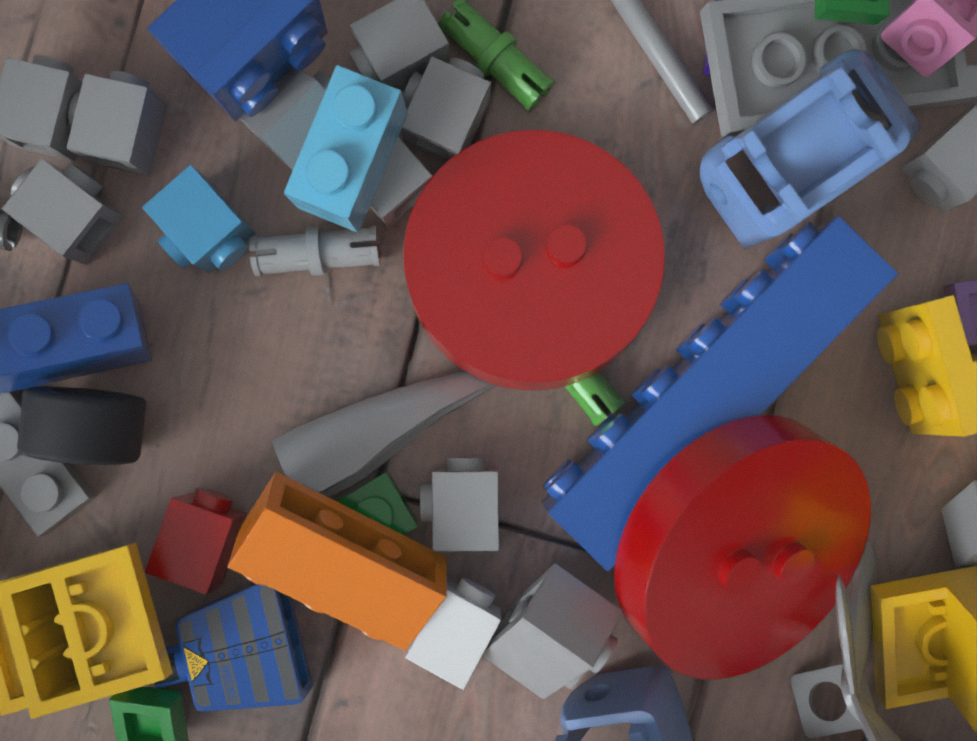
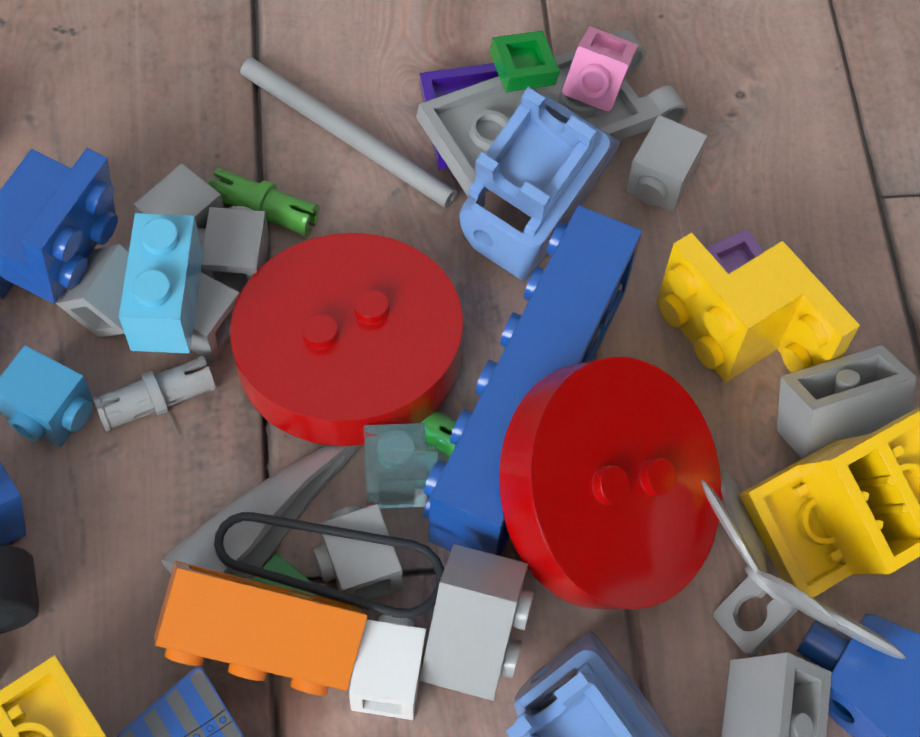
camera: 25 degrees left, 25 degrees down
(196, 540) = (116, 667): red brick -> none
(411, 546) = (321, 590): none -> black piece
(537, 427) = (397, 465): none -> clear light blue brick

